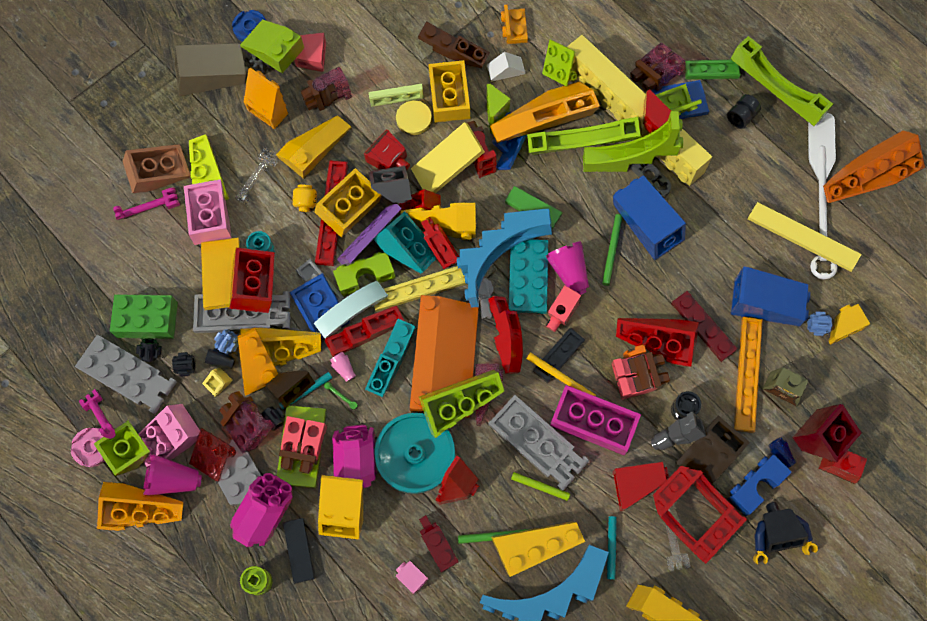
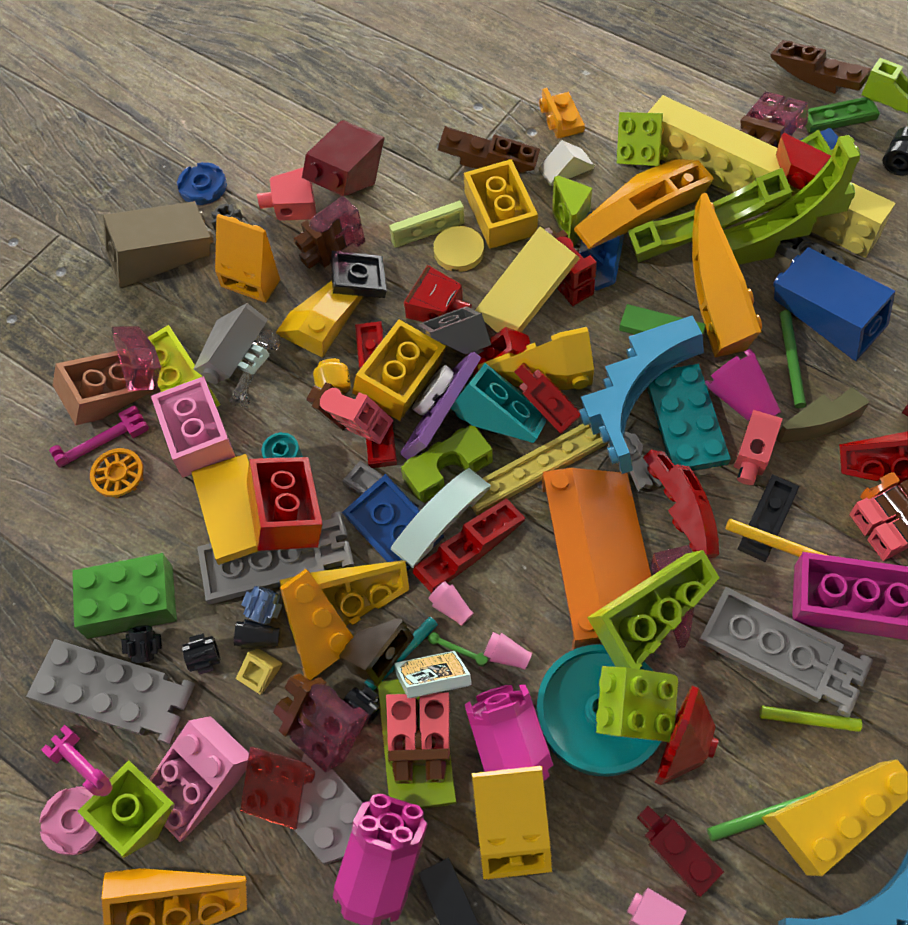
camera: 10 degrees left, 10 degrees down
(153, 231) = (117, 473): none -> light orange wheel
(169, 477) = (213, 839): dark pink cone -> none
(180, 153) = (137, 357): none -> clear pink slope
(241, 158) = (229, 343): none -> light grey slope
(250, 167) = (254, 359): none -> light aqua tile
(274, 44) = (243, 191): lime slope -> none
(309, 226) = (357, 415): none -> coral hips
(318, 409) = (432, 674): none -> tile
(339, 124) = (358, 274): none -> black tile
(349, 34) = (344, 159): none -> dark red slope
(367, 221) = (433, 389): none -> white tile
(368, 404) = (506, 651): none -> bright pink cone
(391, 358) = (521, 574): teal slope -> none
(432, 454) = (637, 703): none -> lime bracket
(576, 189) = (720, 286): none -> light orange wedge
(616, 296) = (824, 417): none -> olive slope
(708, 29) = (813, 67): none -> reddish brown slope

